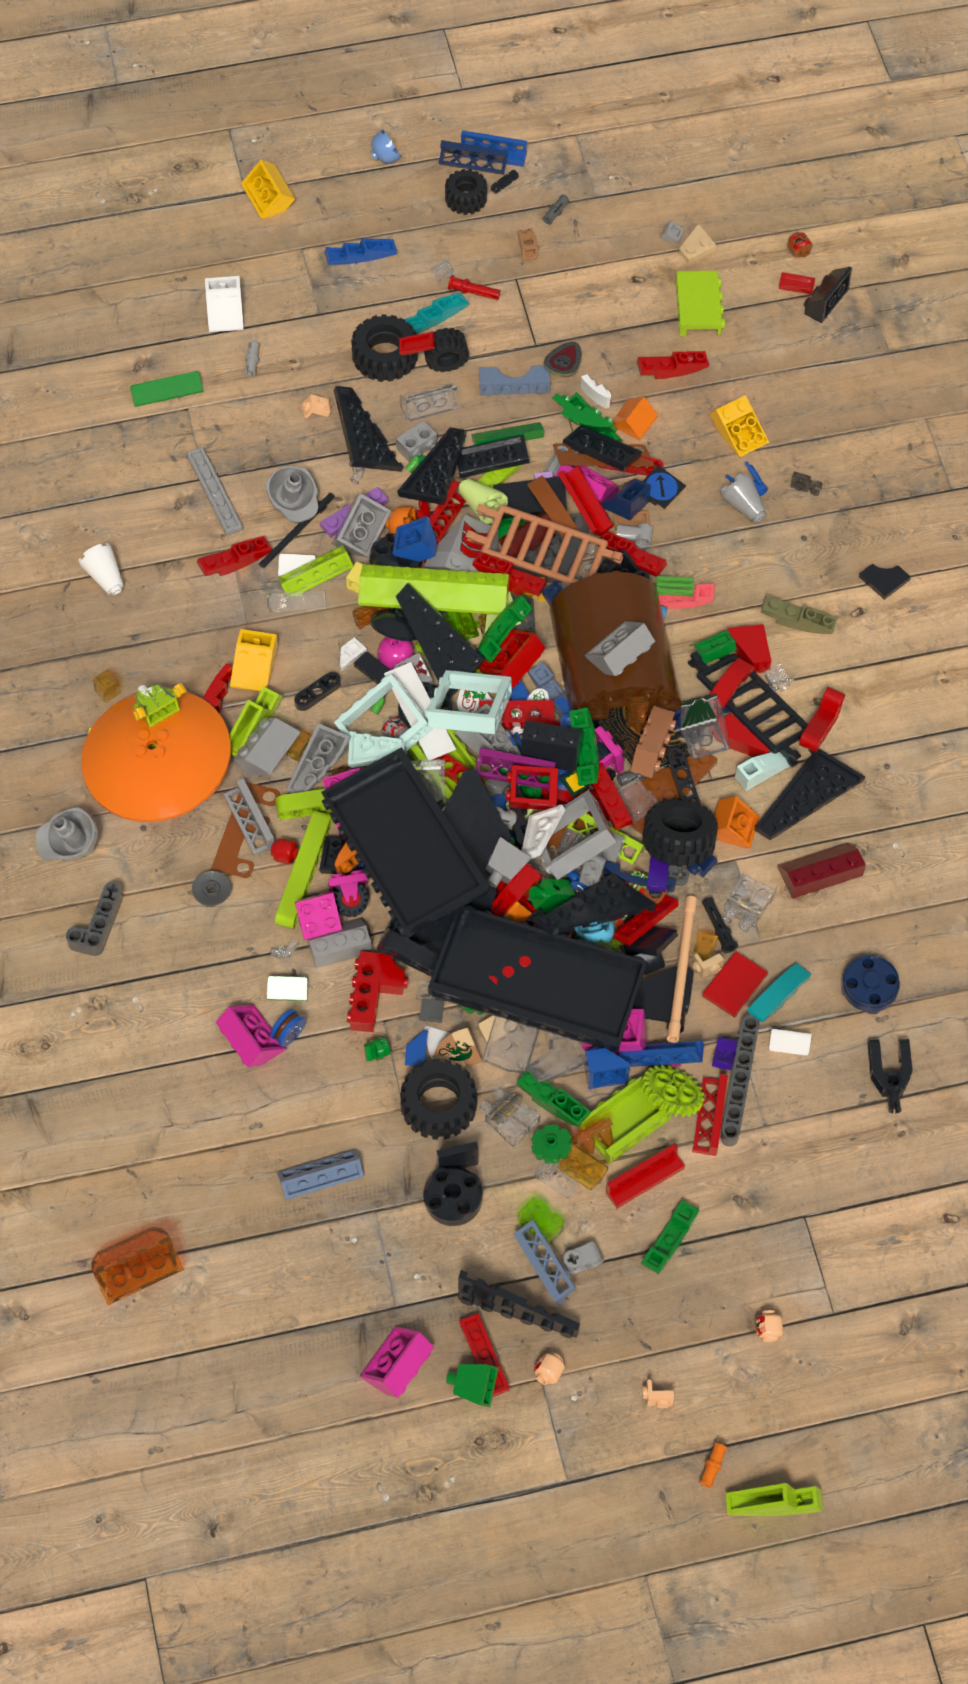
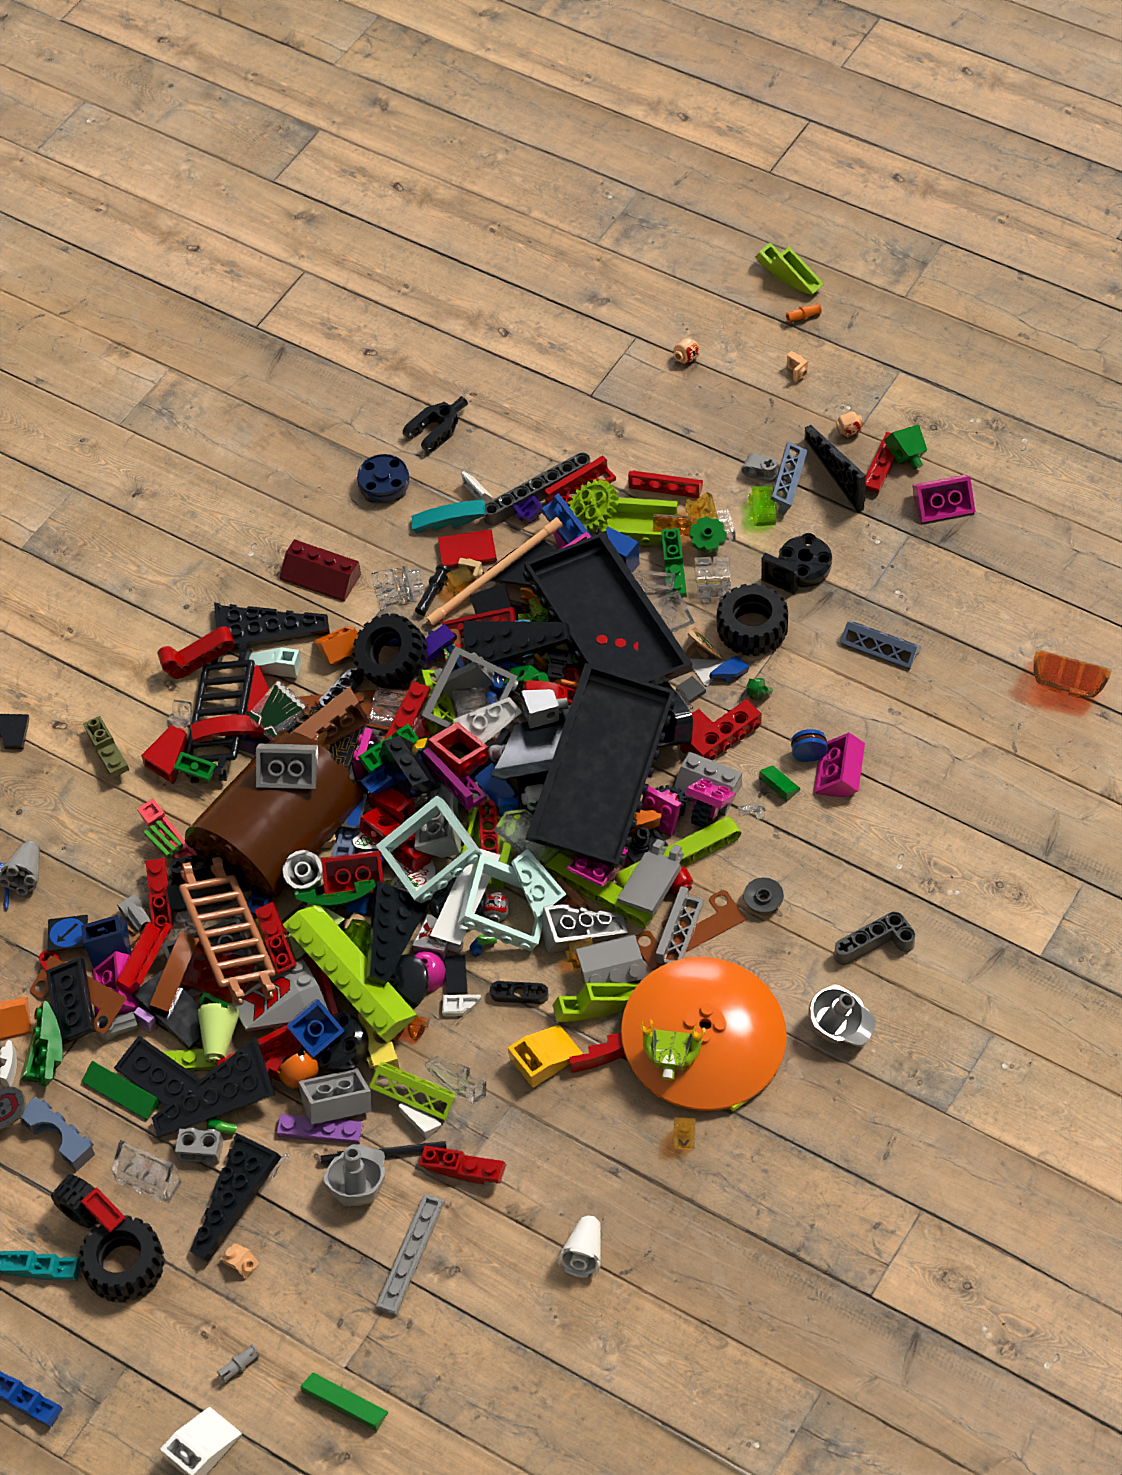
camera: 130 degrees left, 5 degrees down
(297, 822) = (652, 878): none -> light grey tile
(543, 622) = (303, 870): none -> white cone
(671, 1237) = (692, 440): green slope -> none

